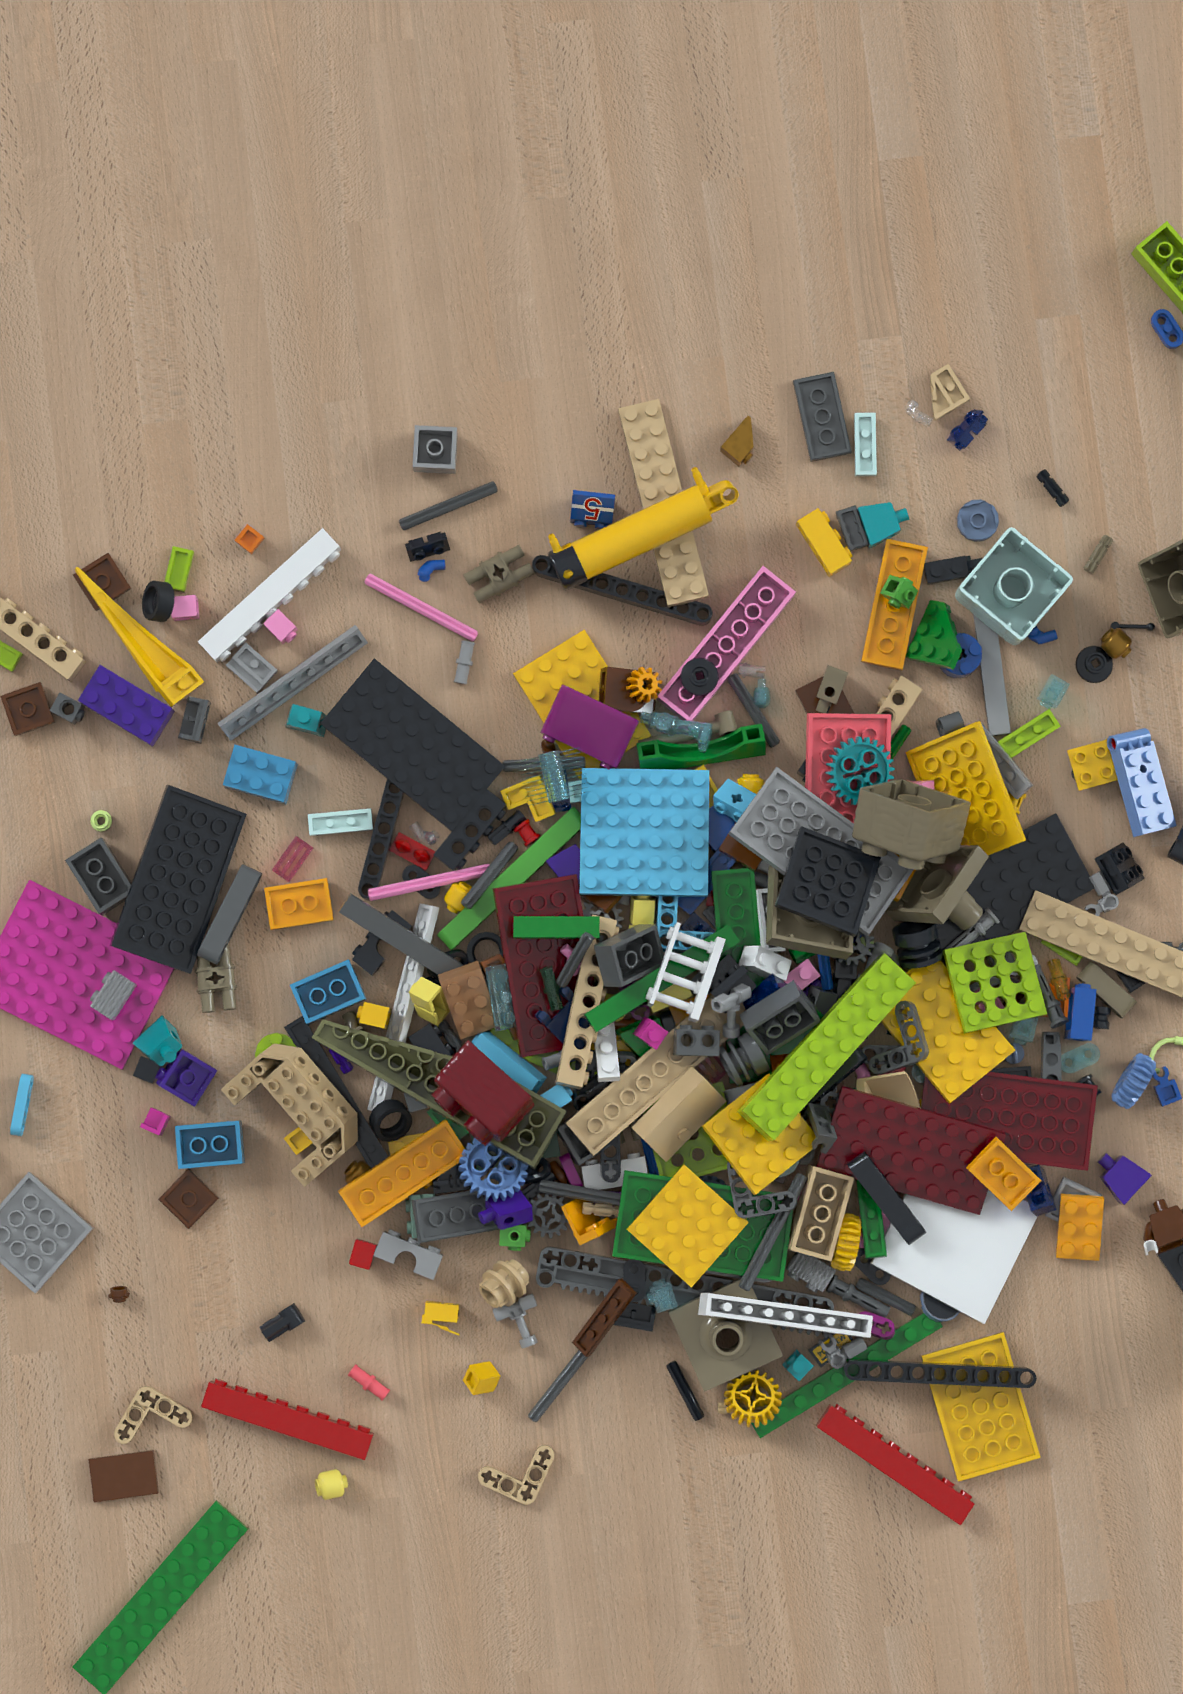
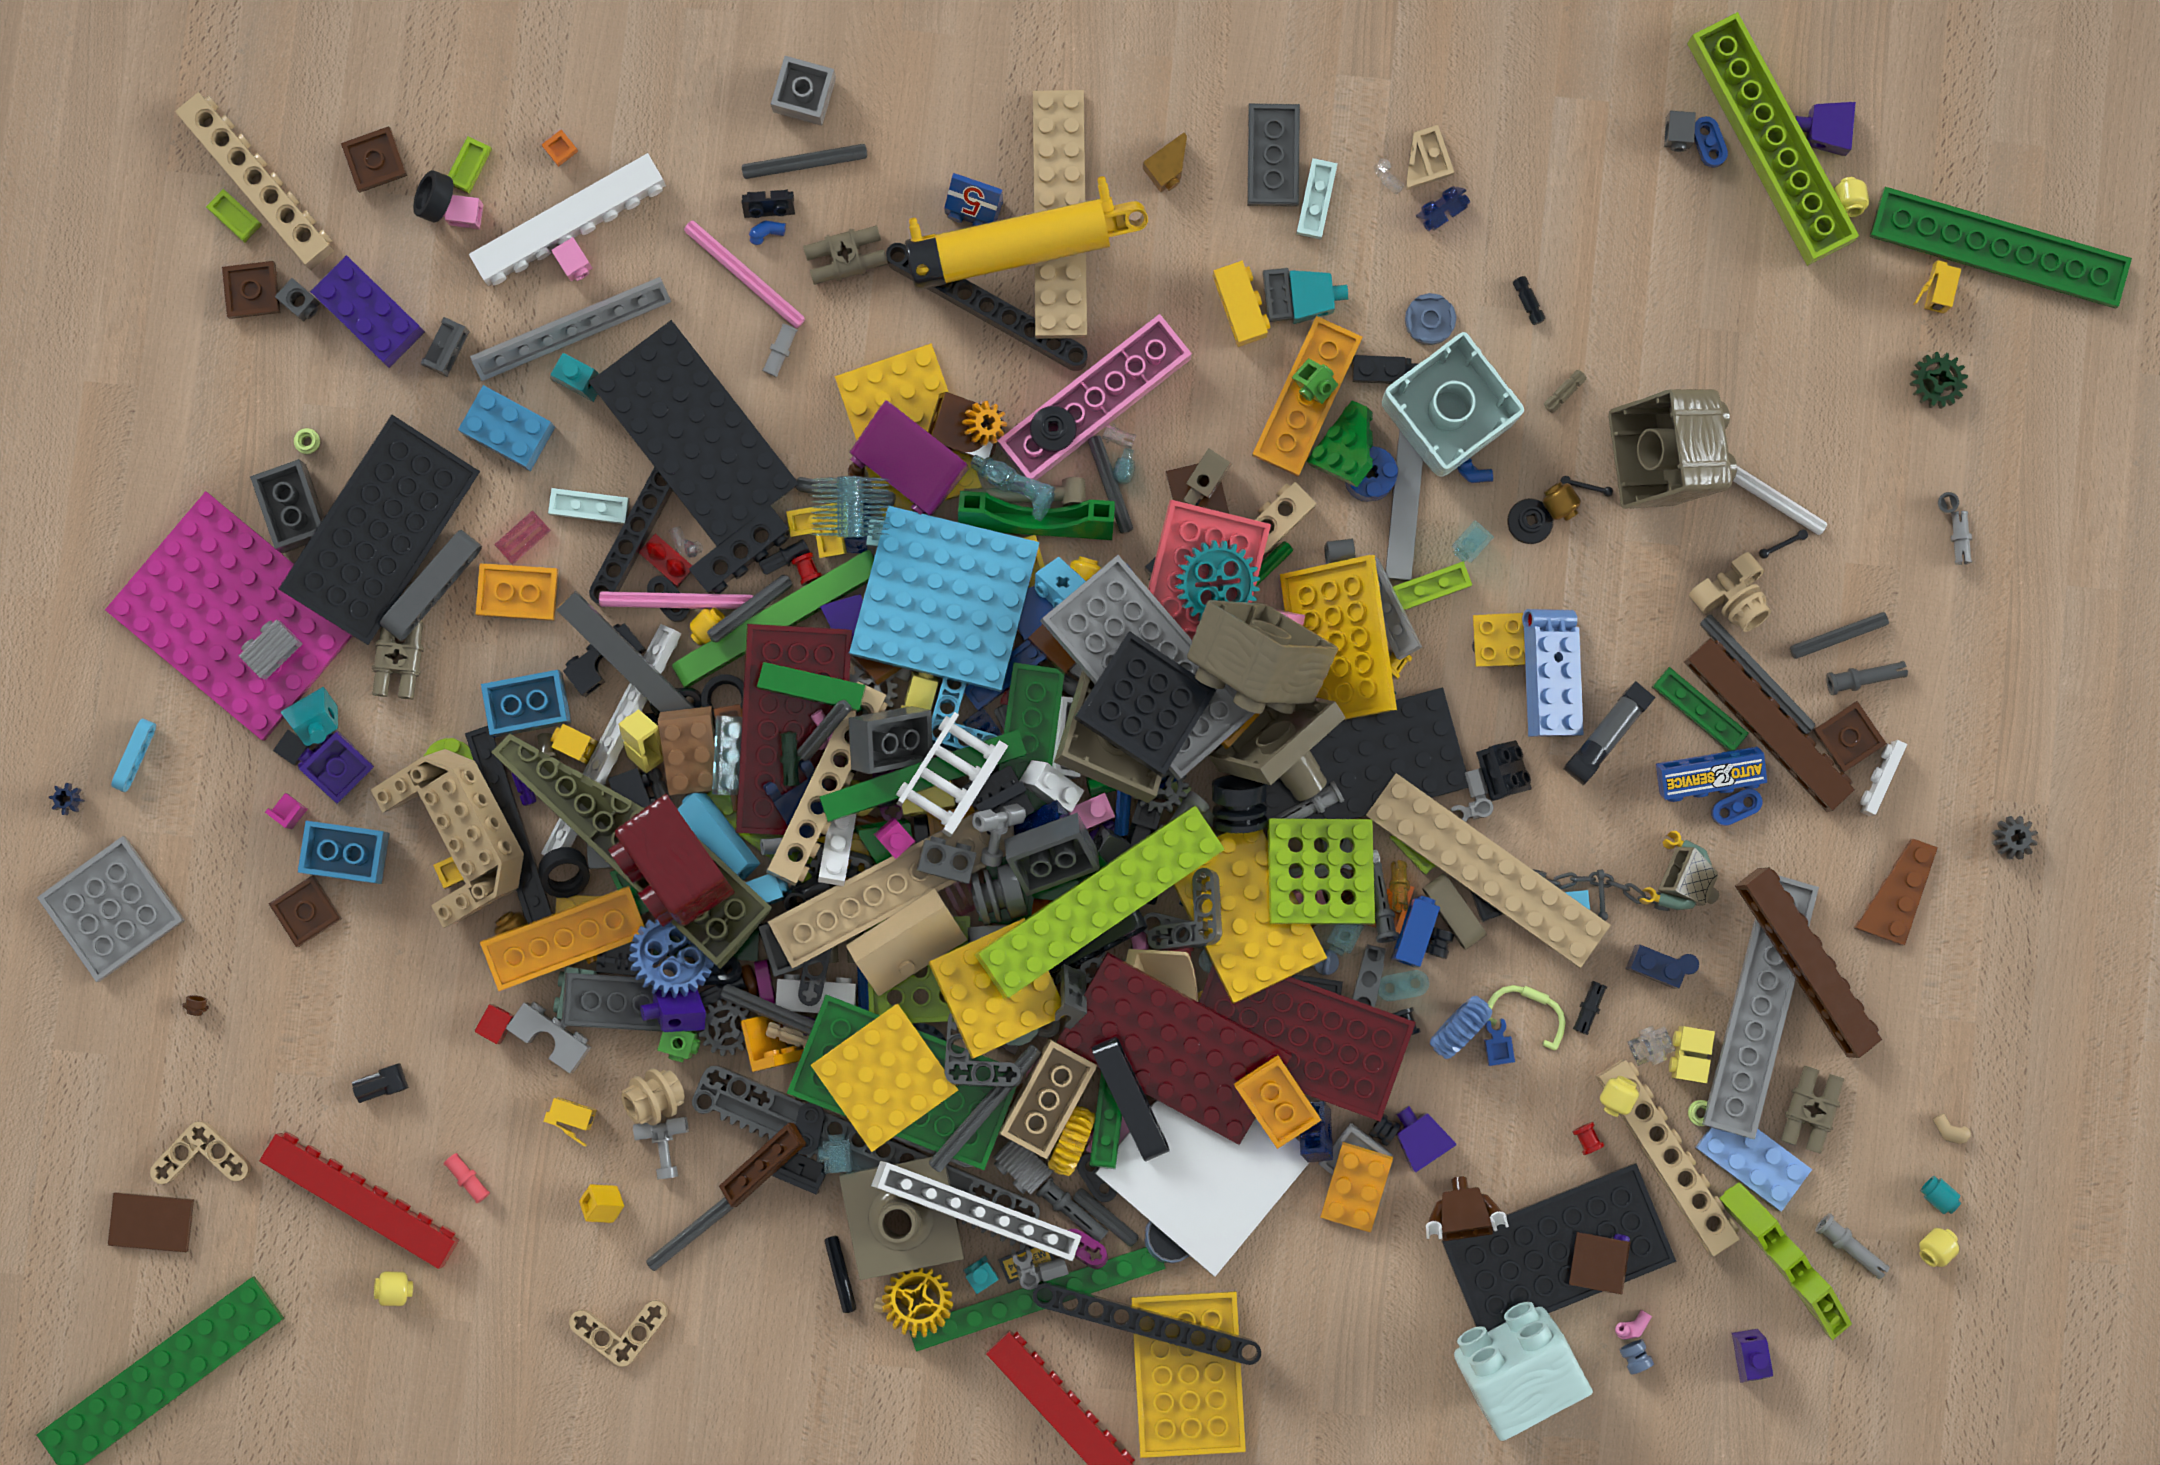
camera: 15 degrees right, 0 degrees up
(161, 666) = (419, 273): yellow plate -> none
(251, 668) = (526, 300): light grey plate -> none
(1091, 1177) = (1384, 1130): none -> black wheel
(1141, 325) = (1679, 130): none -> dark grey brick

